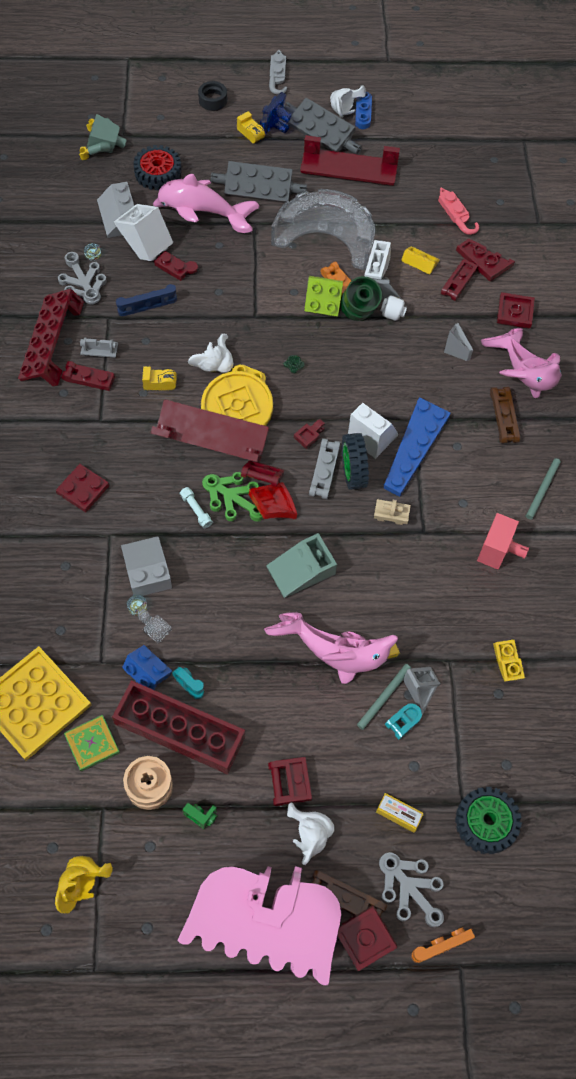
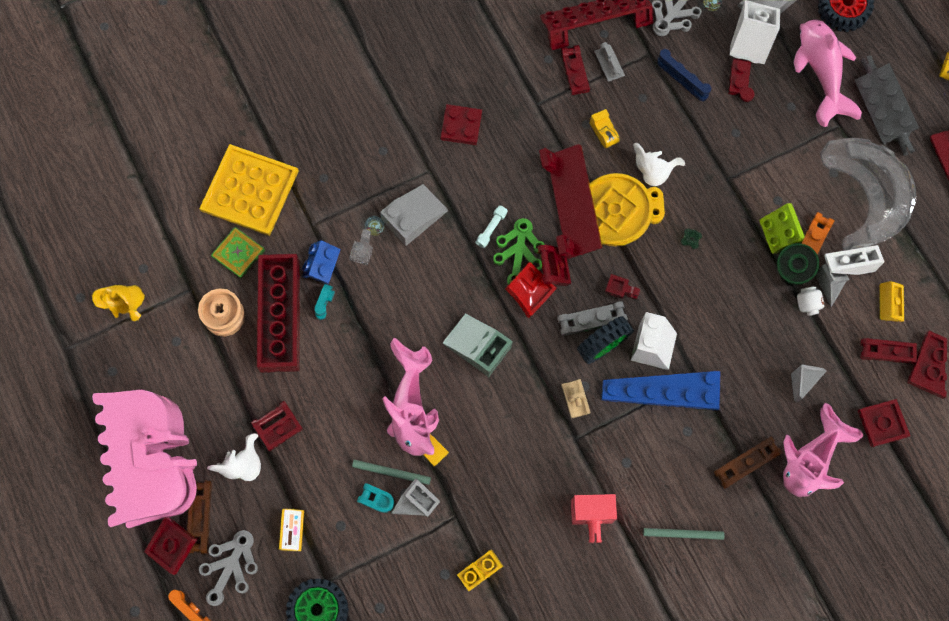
camera: 65 degrees right, 10 degrees up
(197, 815) = (213, 363): green bracket -> none

